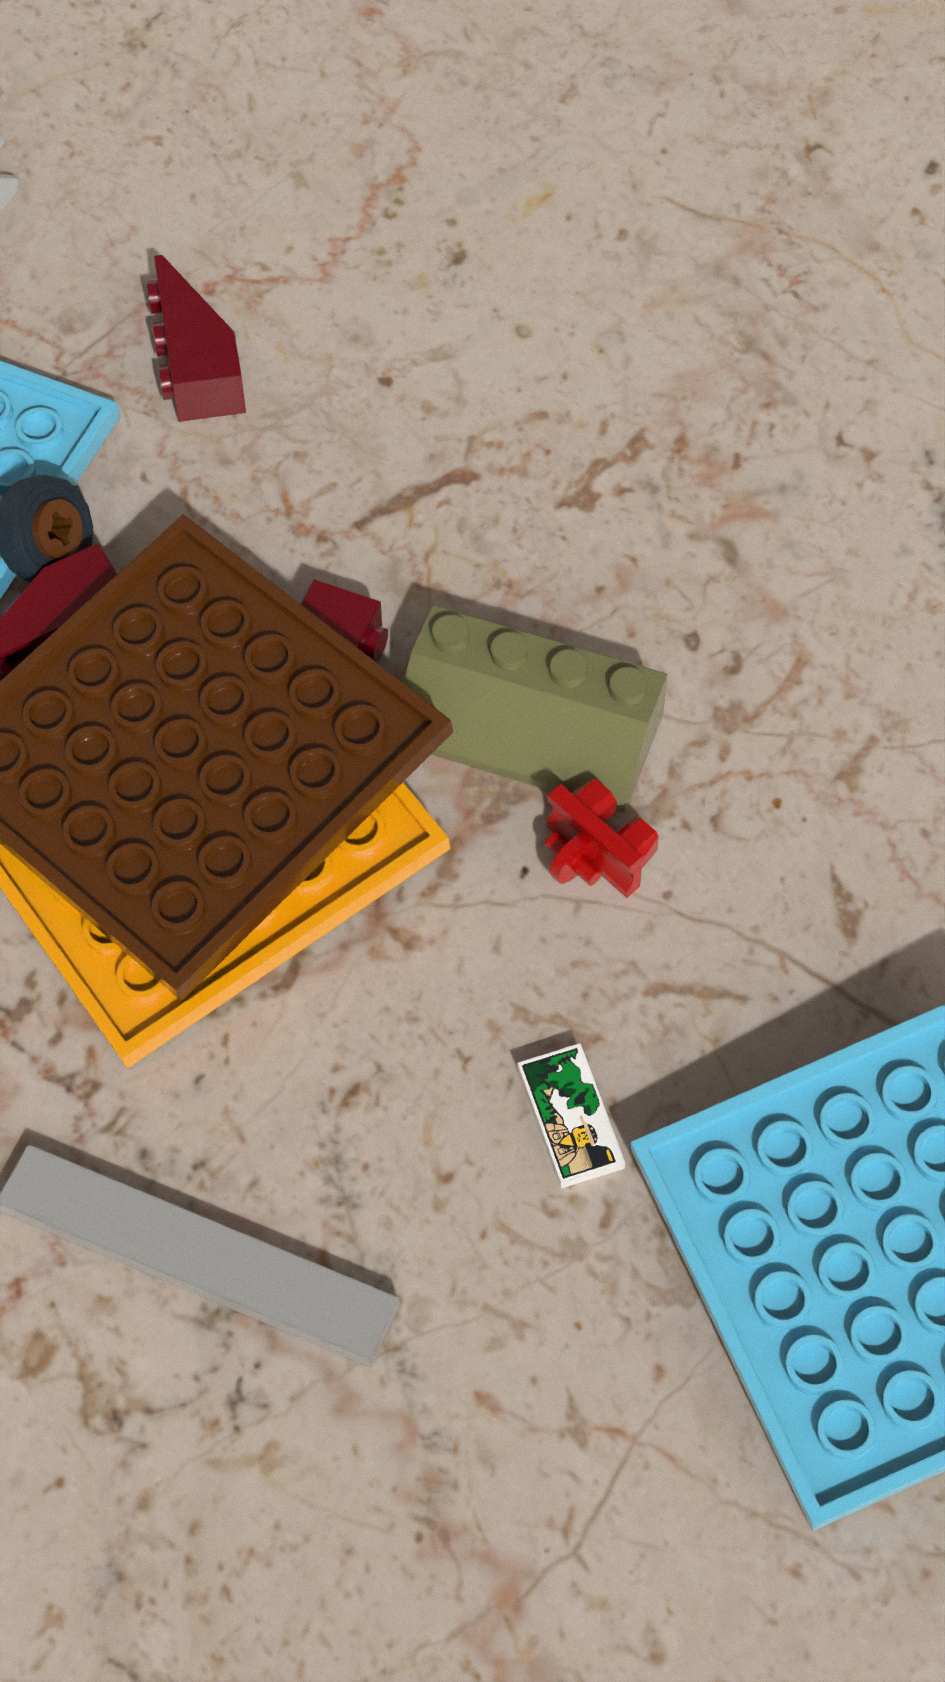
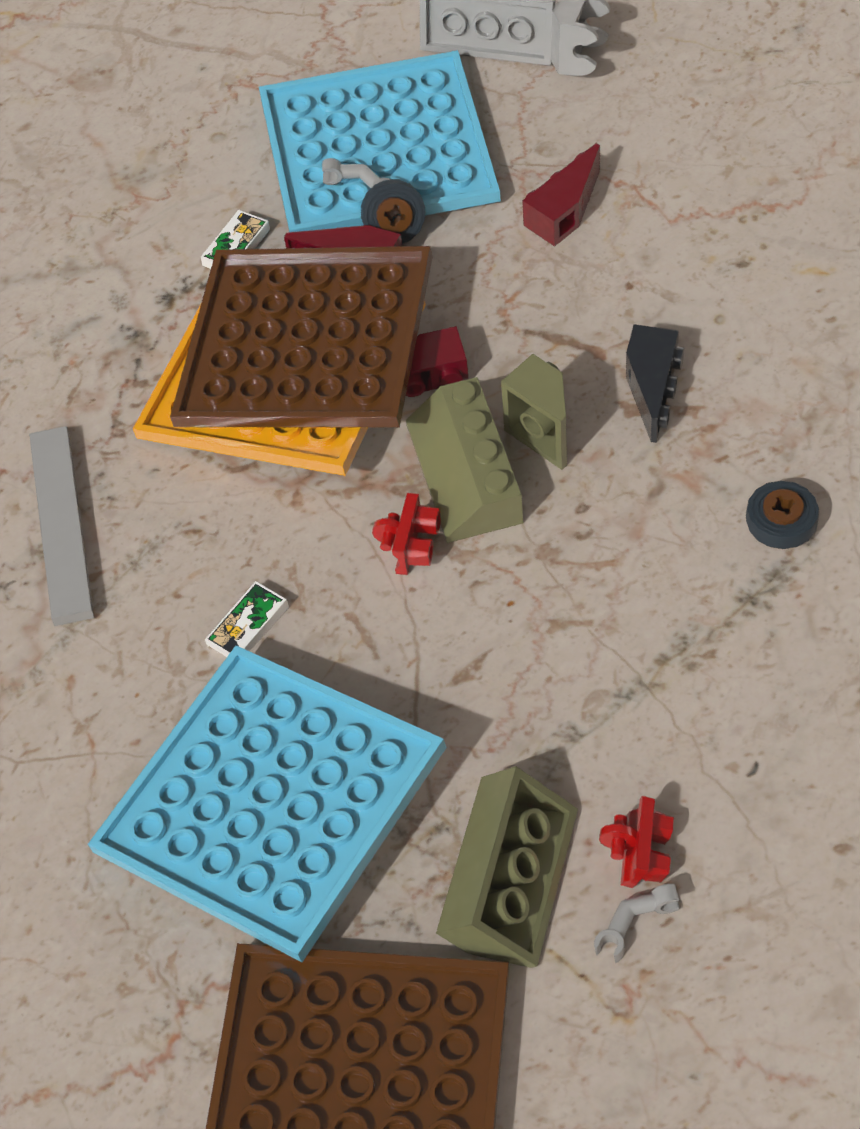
camera: 60 degrees right, 5 degrees down
(547, 572) = (536, 408): none -> olive slope
(564, 441) = (649, 372): none -> black slope
(897, 469) = (772, 525): none -> black wheel

